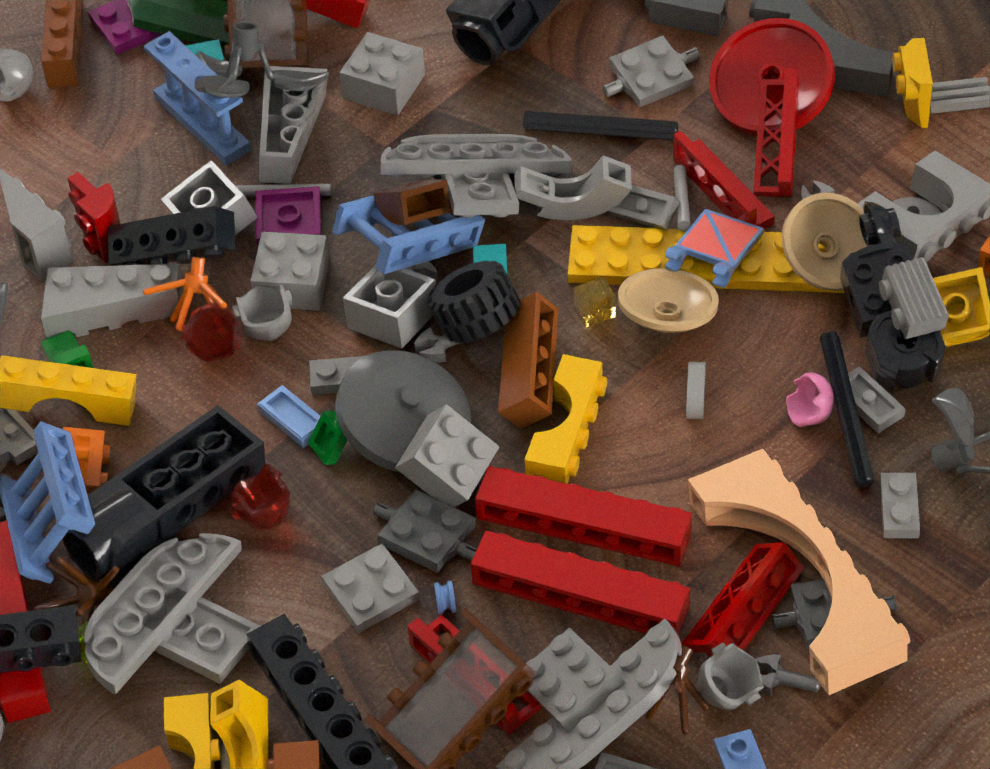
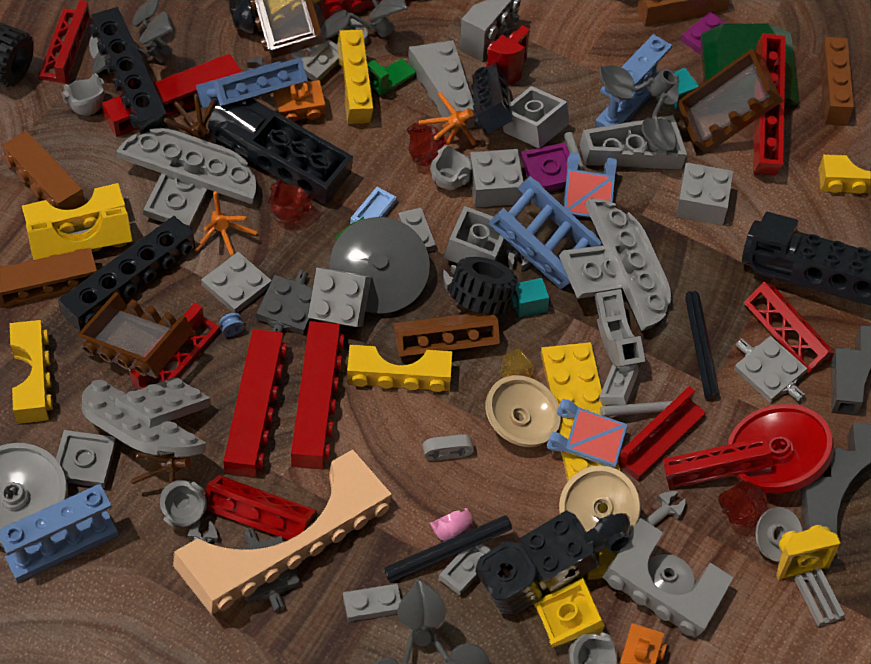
camera: 70 degrees right, 5 degrees up
(266, 587) = (221, 222): none -> orange plant
(336, 180) = (587, 185): none -> flag
(413, 201) = (561, 226): reddish brown brick -> none
(593, 31) = (794, 318): none -> red fence
(839, 123) = (744, 504): none -> clear red cap
(879, 107) = (778, 520): none -> light grey dish
(913, 298) = (532, 561): light grey brick -> none

